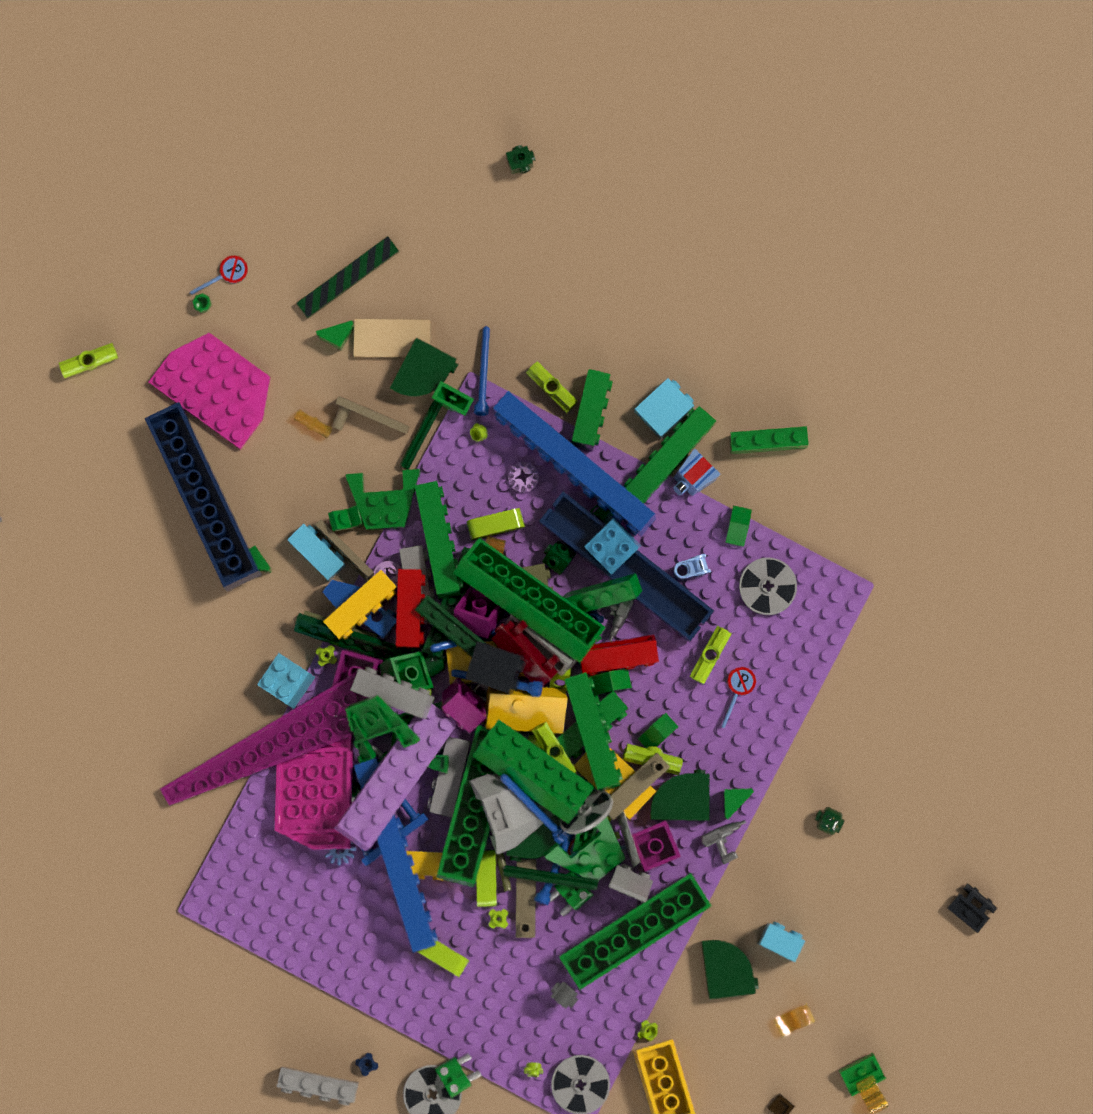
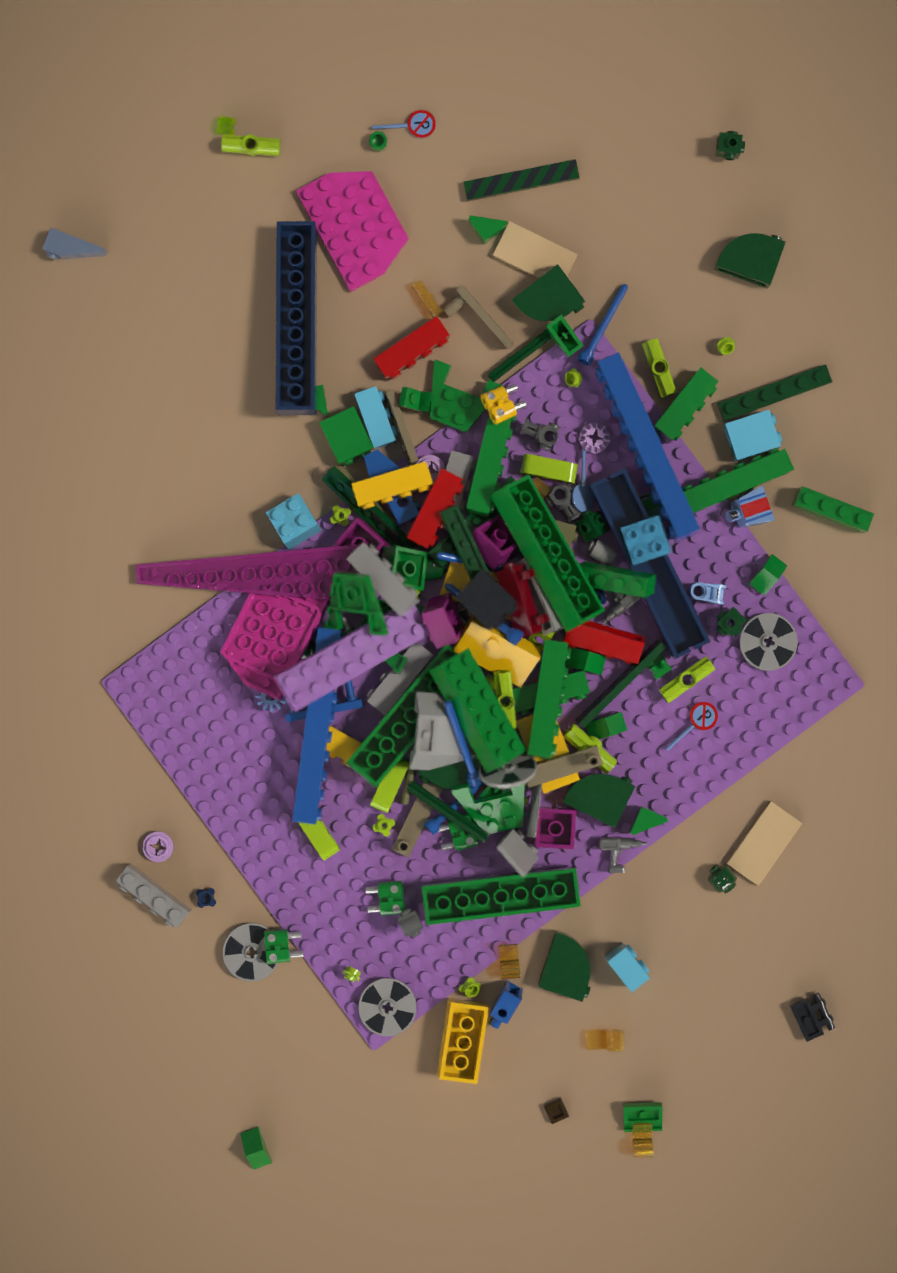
camera: 25 degrees right, 5 degrees up
(52, 353) = (222, 121): none -> clear neon green plate
(295, 1046) = (150, 851): none -> lavender gear
(298, 581) = (347, 436): none -> green brick
(319, 474) = (411, 348): none -> red brick
(422, 487) = (499, 405): none -> yellow piece
(471, 496) = (539, 432): none -> dark grey connector
(524, 549) = (564, 503): none -> dark grey connector
(535, 533) = (581, 494): none -> medium blue piece
(535, 981) = (390, 897): none -> green piece
(578, 576) = (601, 552): none -> light grey brick
(588, 250) = (752, 258): none -> dark green brick
(602, 338) = (726, 345): none -> lime plate
(652, 687) = (620, 684): none -> dark green tile
(667, 360) = (774, 393): none -> dark green plate
(672, 989) = (509, 961): none -> clear yellow panel
(679, 655) = (659, 667): none -> green tile
(687, 1024) = (505, 1004): none -> blue torso
(724, 578) = (736, 619): none -> dark green brick
(852, 770) = (764, 843): none -> tan tile

